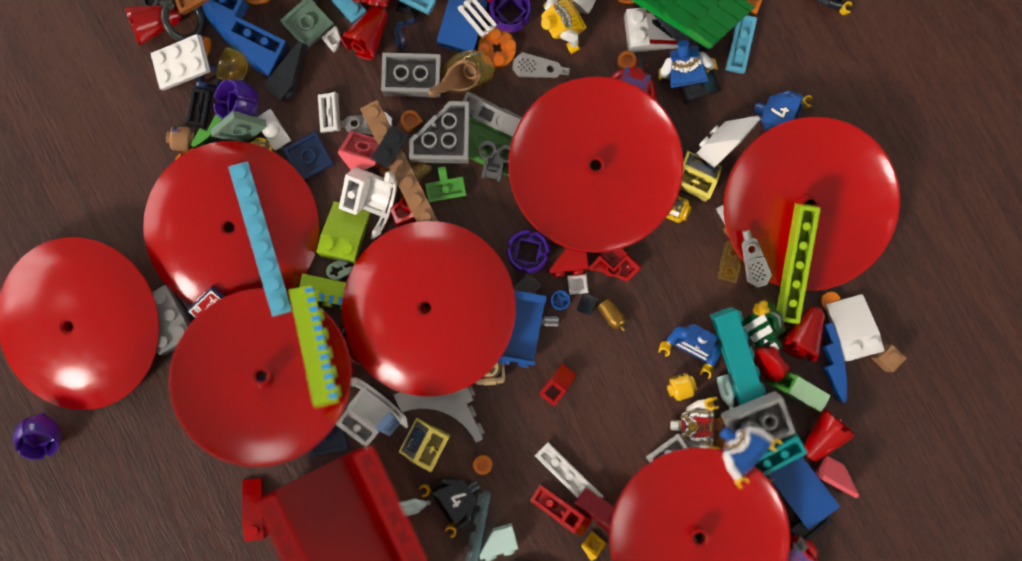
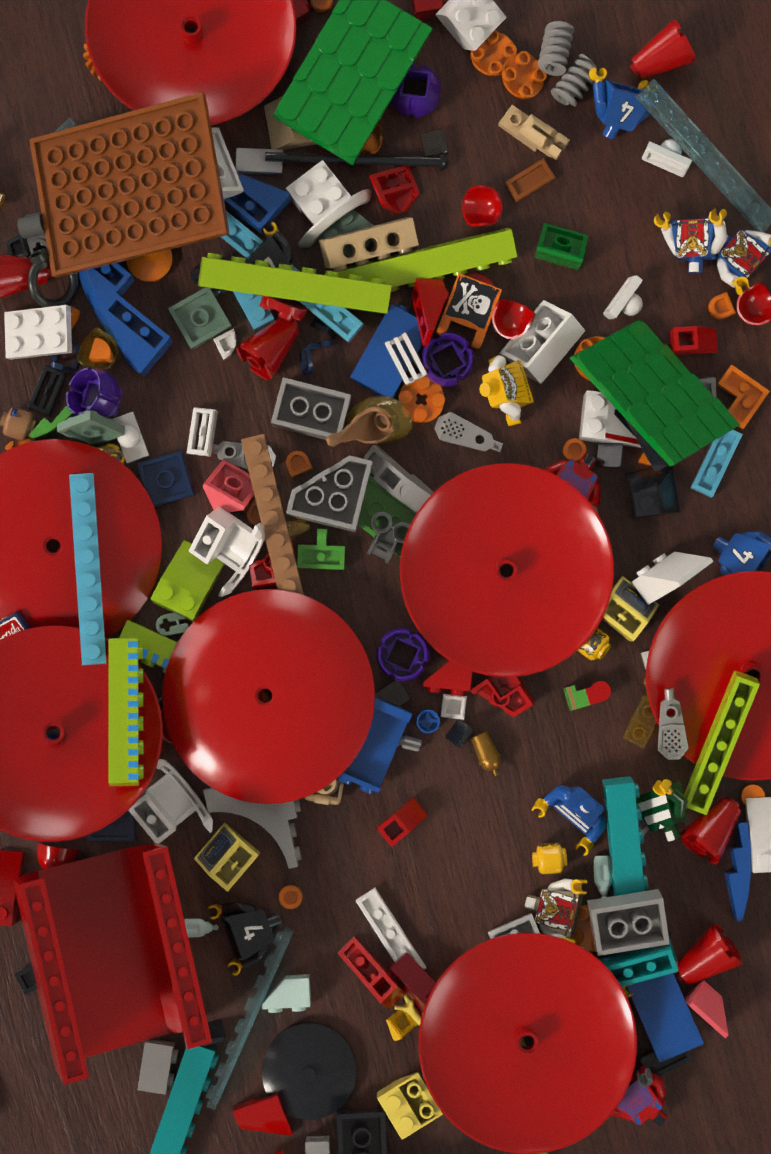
camera: 10 degrees right, 0 degrees up
(234, 66) = (101, 352): none -> orange tile
(286, 475) = (53, 856): none -> red helmet
(287, 75) = (163, 376): black slope -> none
(388, 424) = (189, 823): light blue tile -> none
(389, 147) = (266, 494): black plate -> none
(597, 531) = (410, 1008): none -> light yellow bar
(655, 58) = (609, 455): none -> black slope
(686, 65) = (643, 476): torso -> none
(688, 248) = (596, 693): none -> leg
(745, 450) = (604, 950): torso -> none
(770, 364) = (660, 855): red tile -> none
(801, 391) = (688, 893): bright green slope -> none

